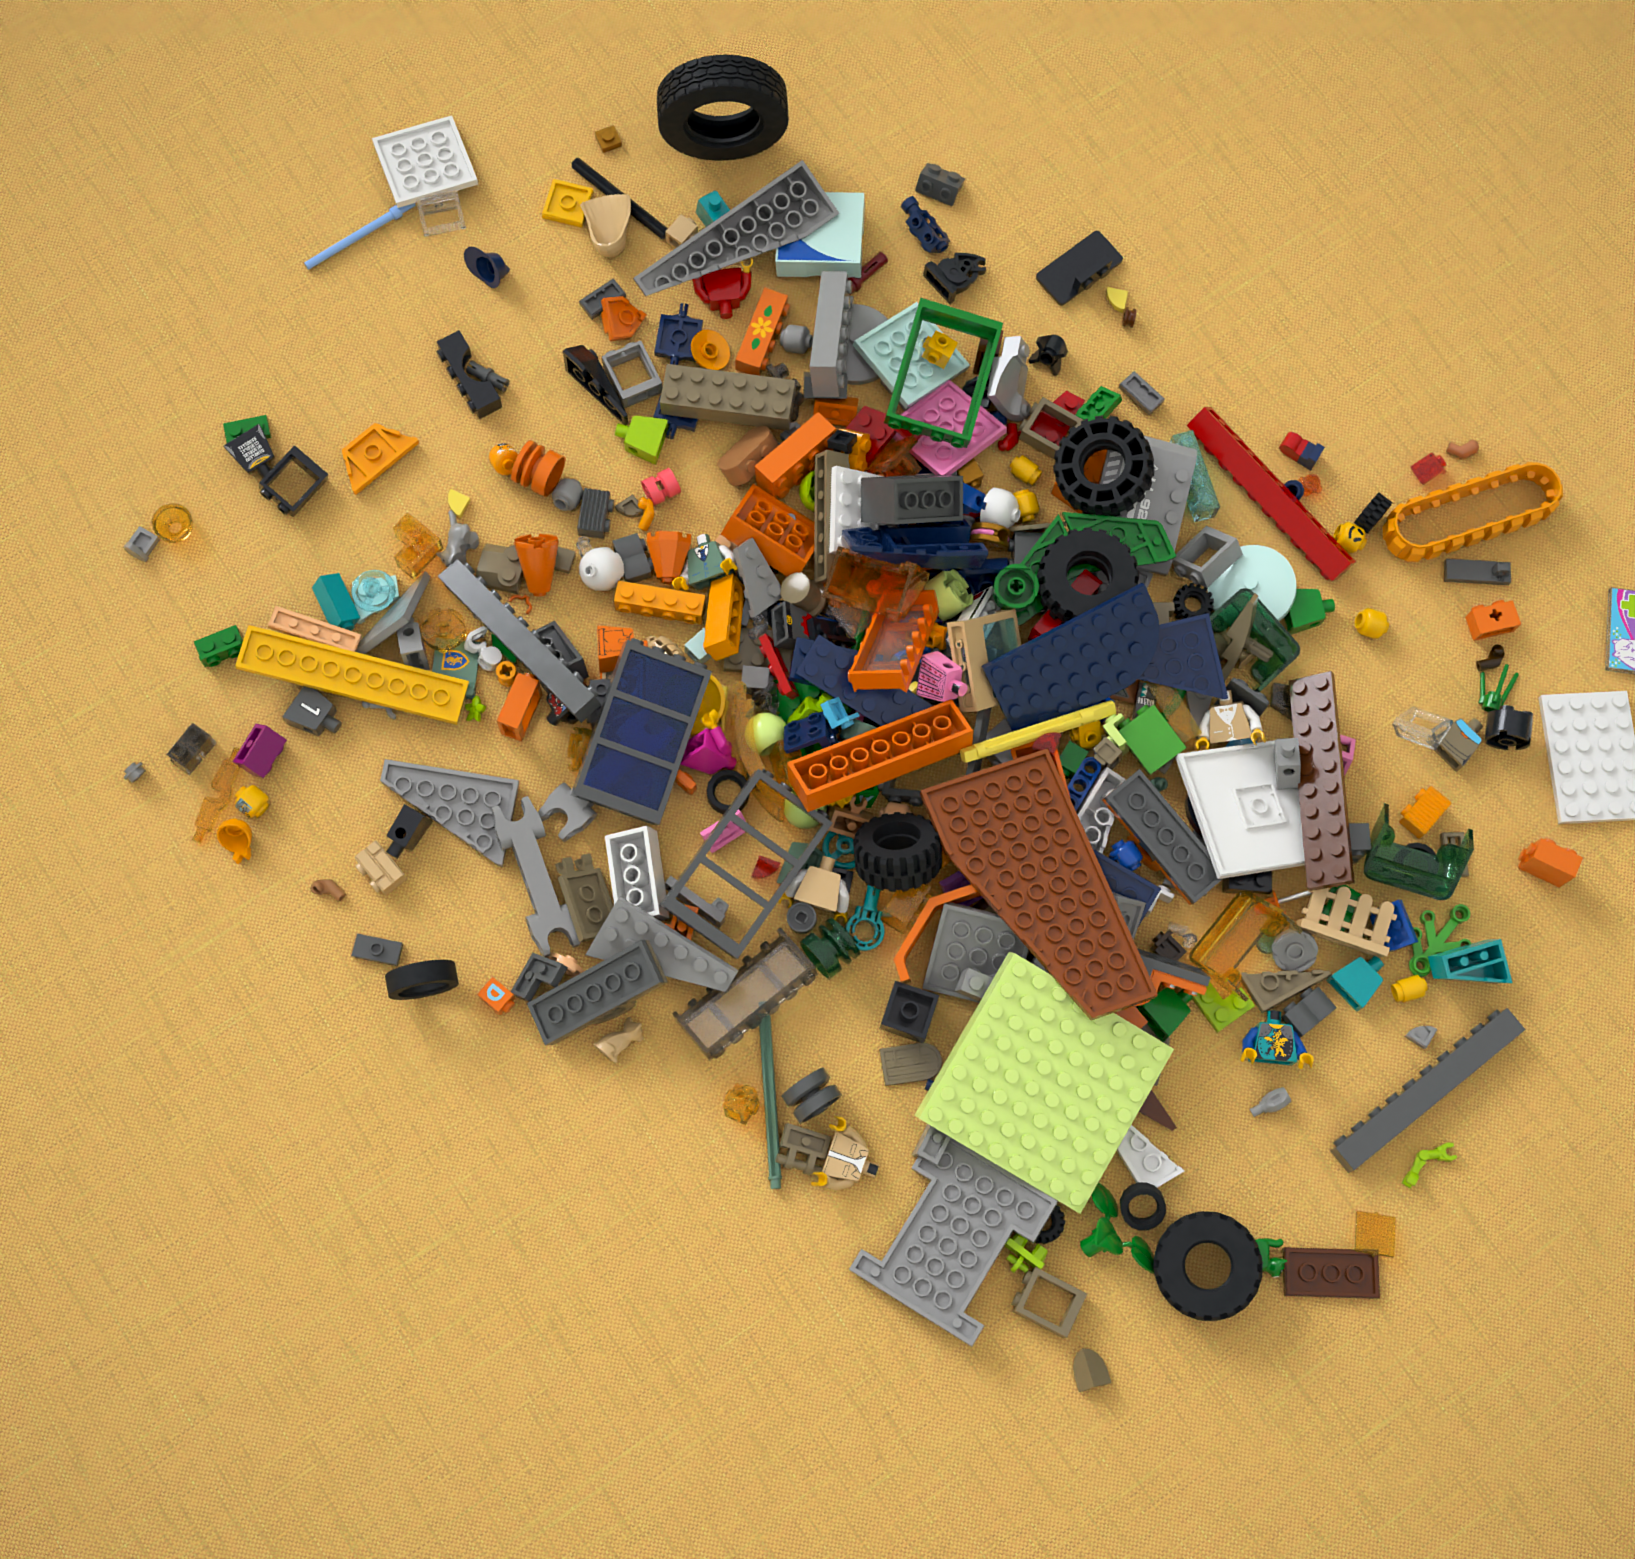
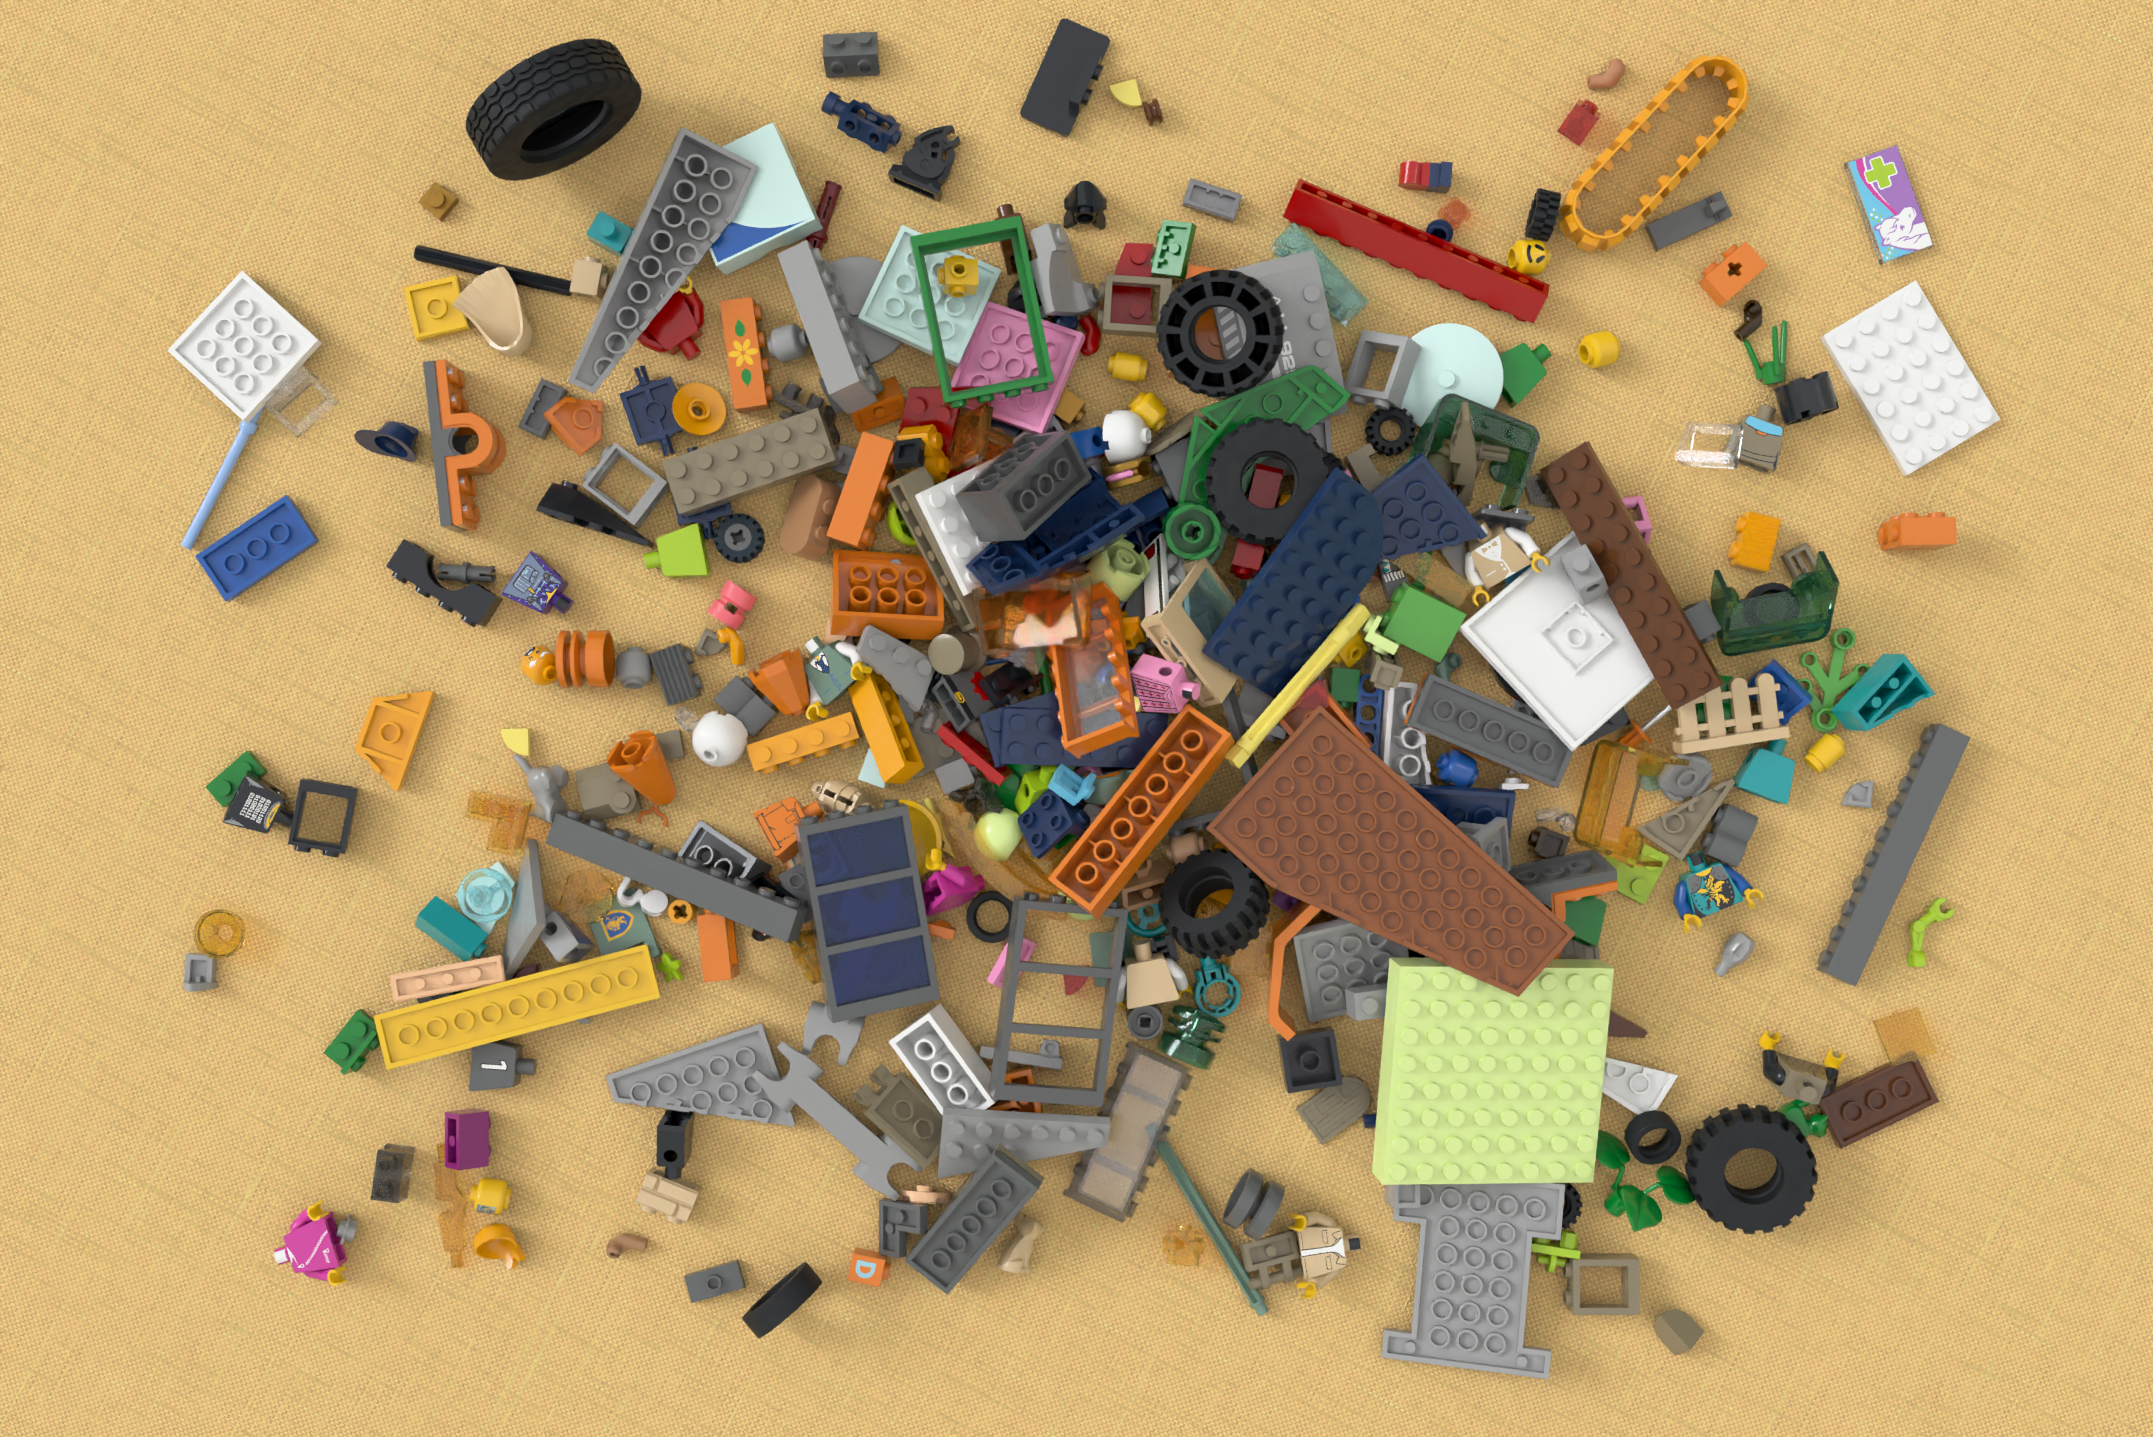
camera: 25 degrees left, 15 degrees up
(104, 768) = (314, 1246): none -> dark pink torso
(354, 290) = (257, 548): none -> blue plate
(531, 408) = (538, 586): none -> torso
(532, 292) = (450, 430): none -> orange piece
(687, 454) = (747, 544): none -> black wheel
(1277, 1218) = (1796, 1076): none -> torso

